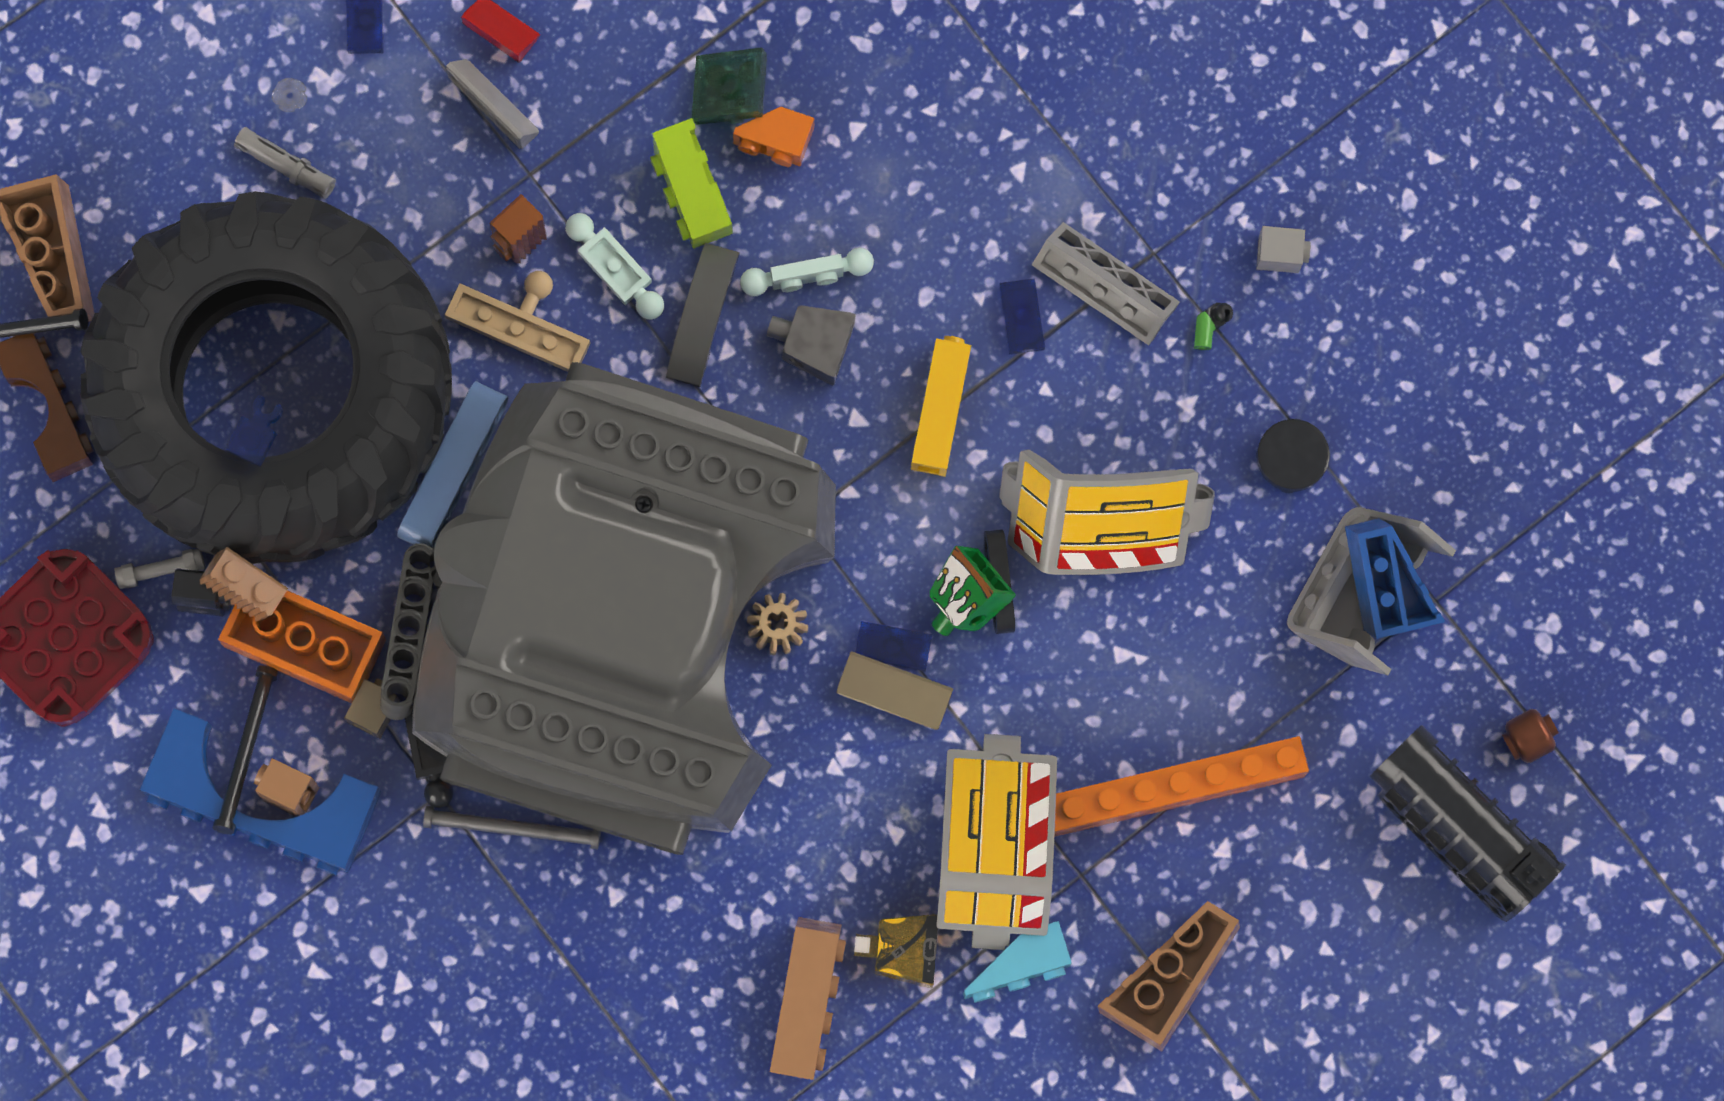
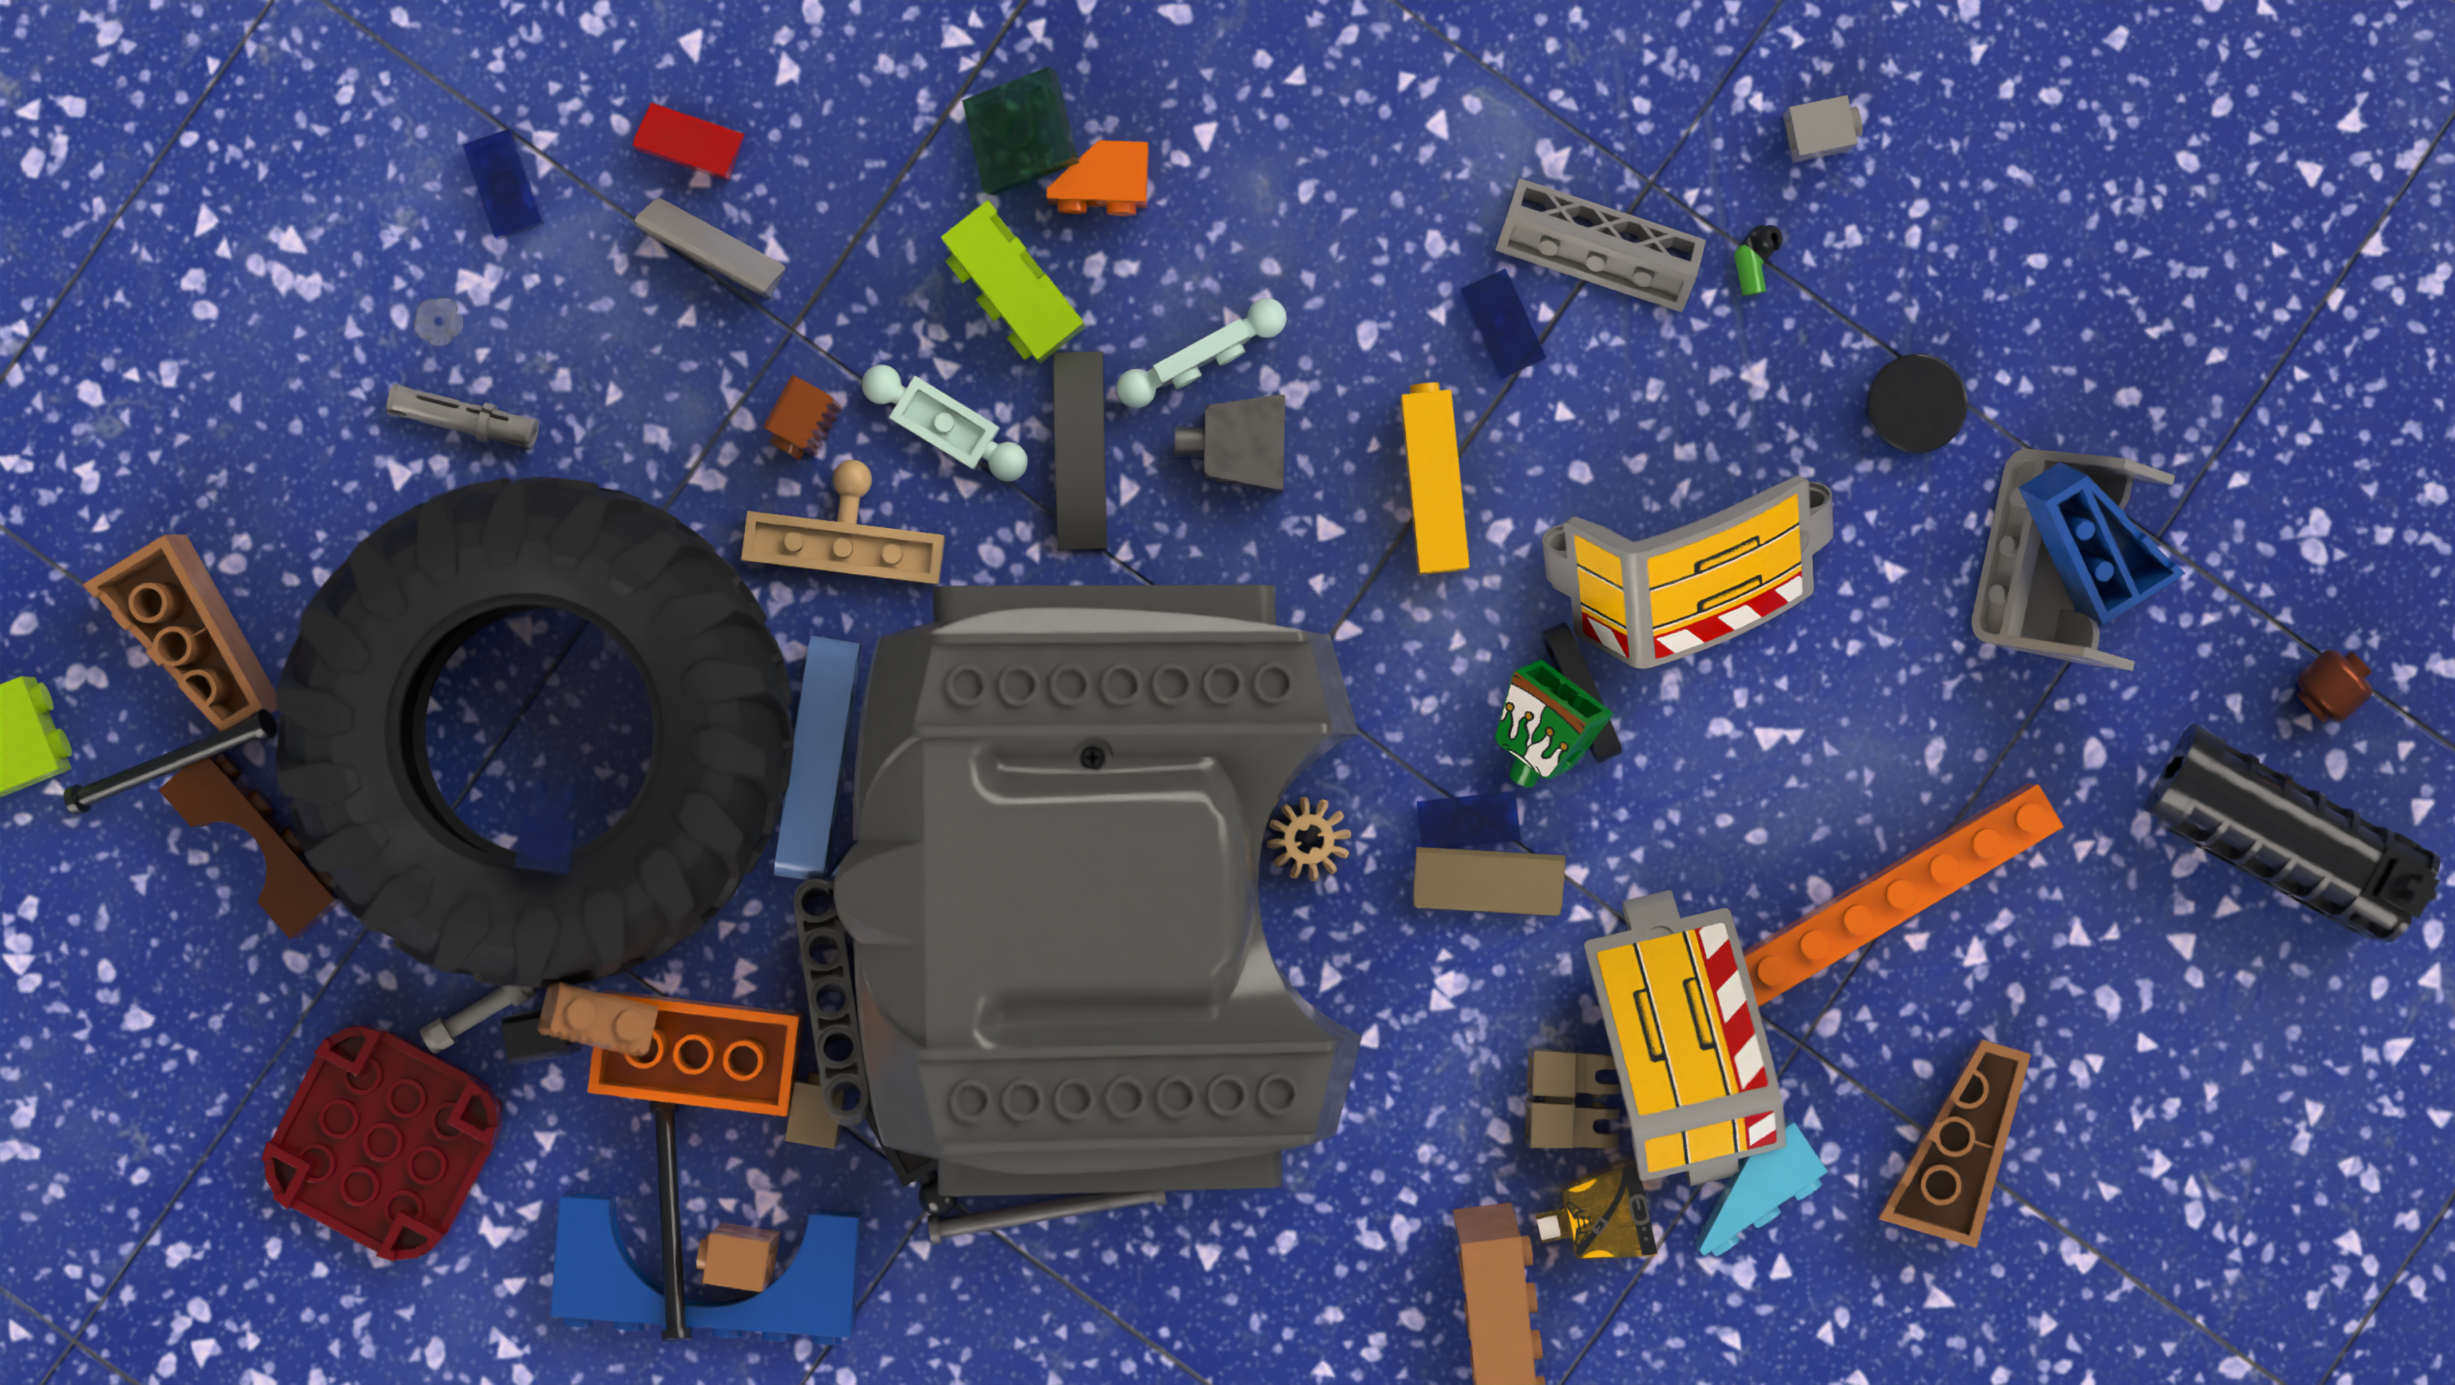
camera: 10 degrees left, 10 degrees up
(890, 871) = (1556, 1118): none -> dark tan legs

